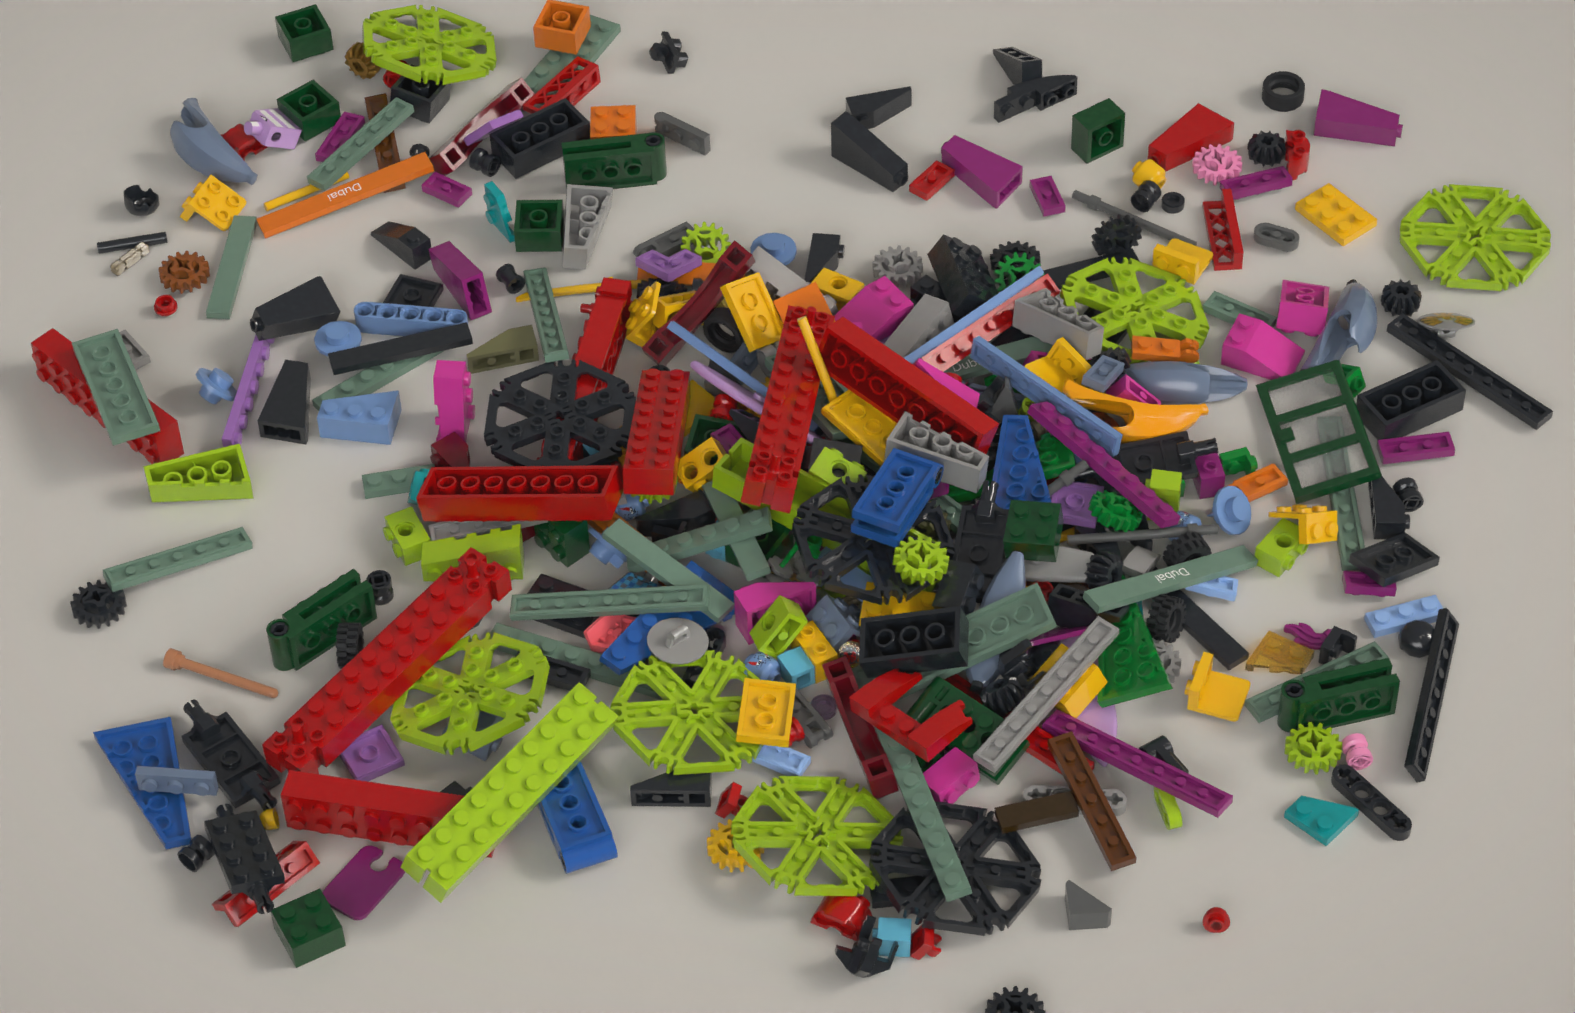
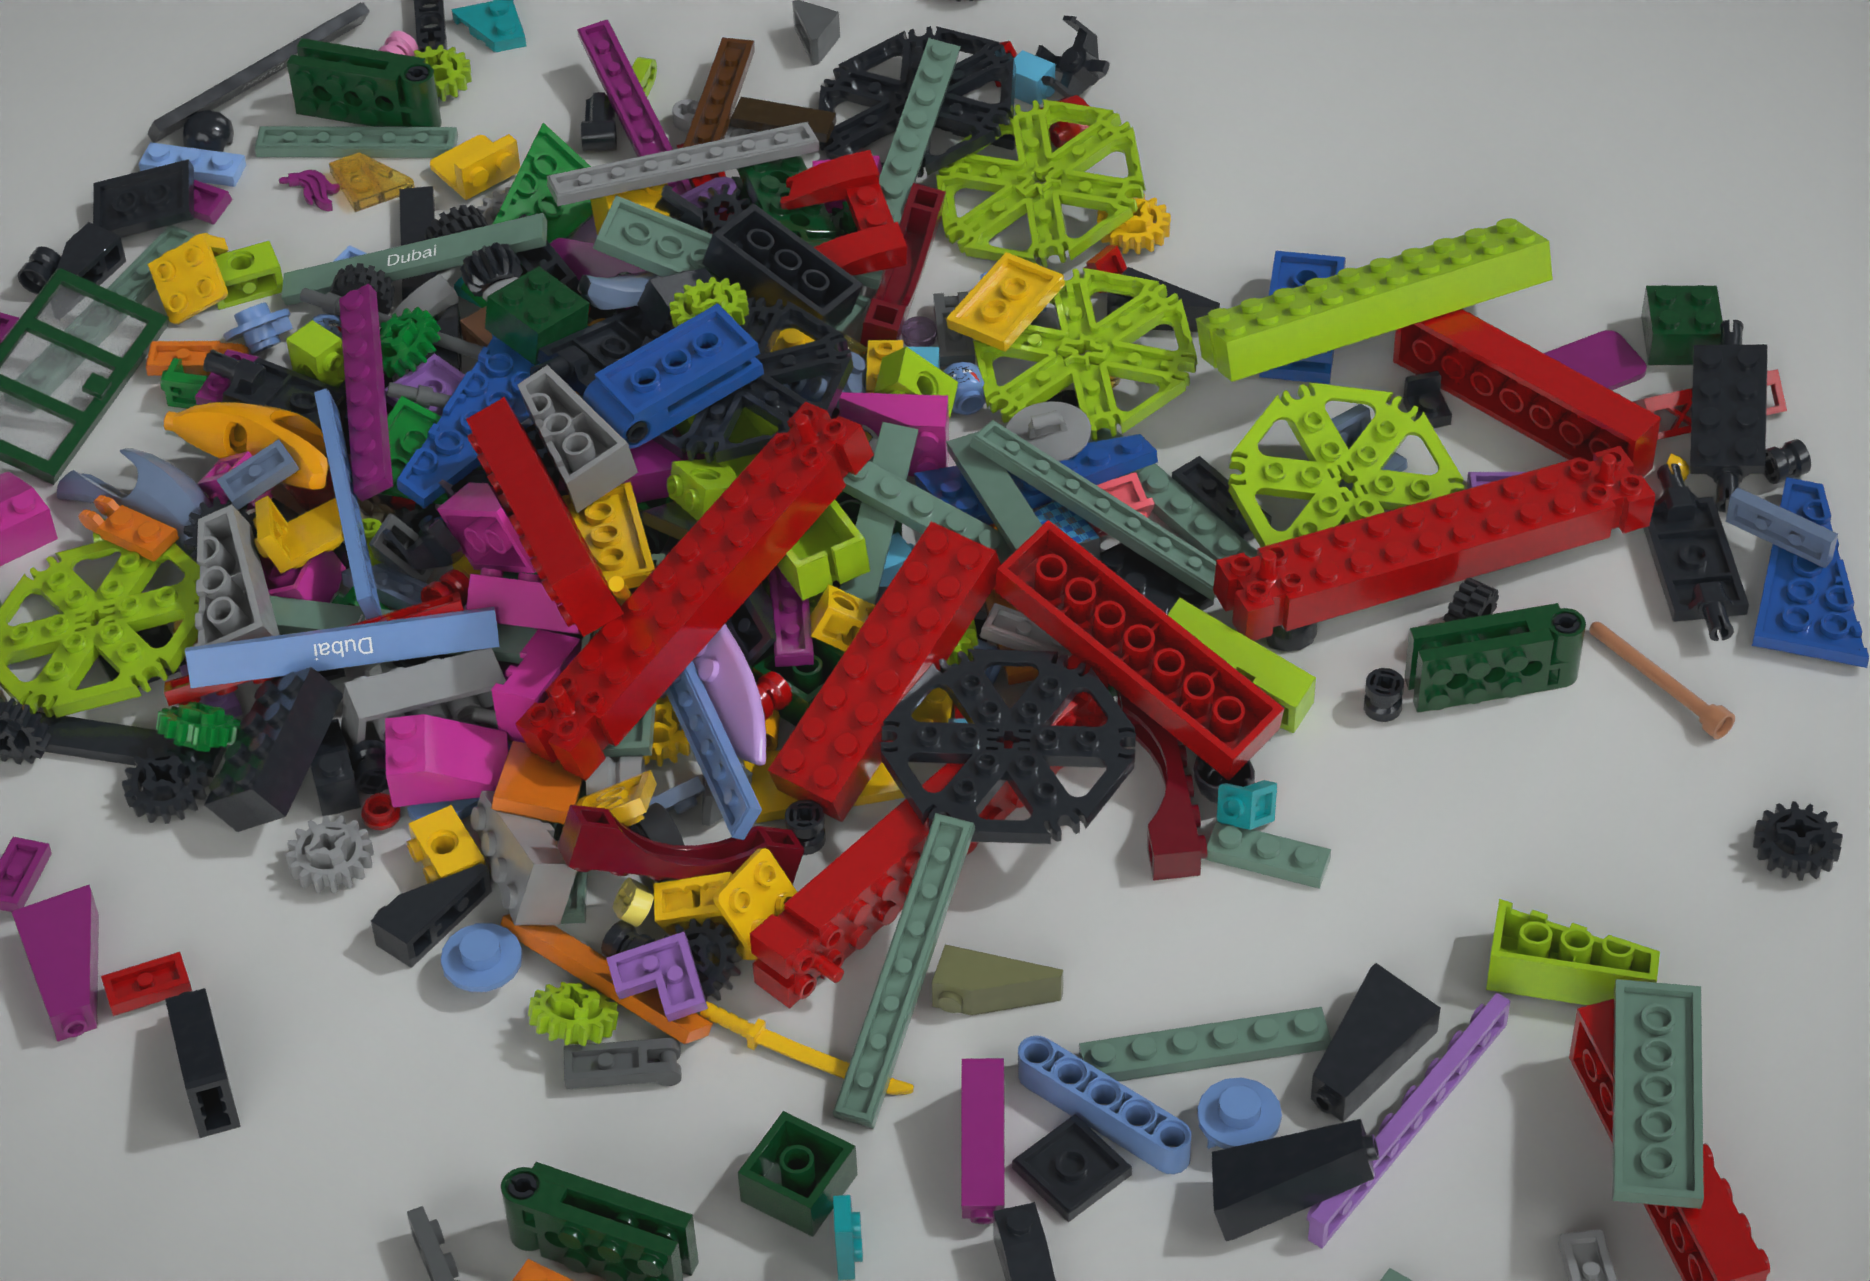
camera: 150 degrees left, 0 degrees up
(177, 559) = (1655, 855): sand green tile -> none
(216, 385) = (1473, 1114): medium blue piece -> none
(361, 417) = (1275, 959): medium blue wedge -> none
(400, 348) = (1155, 1042): black tile -> none
(406, 535) = (1305, 751): lime brick -> none
(453, 398) = (1131, 888): dark pink wedge -> none
(507, 275) = (902, 1113): black bush -> none
(584, 218) = (703, 1165): light grey wedge -> none
(879, 106) = (106, 1158): black slope -> none
(1337, 641) = (303, 155): black bracket -> none

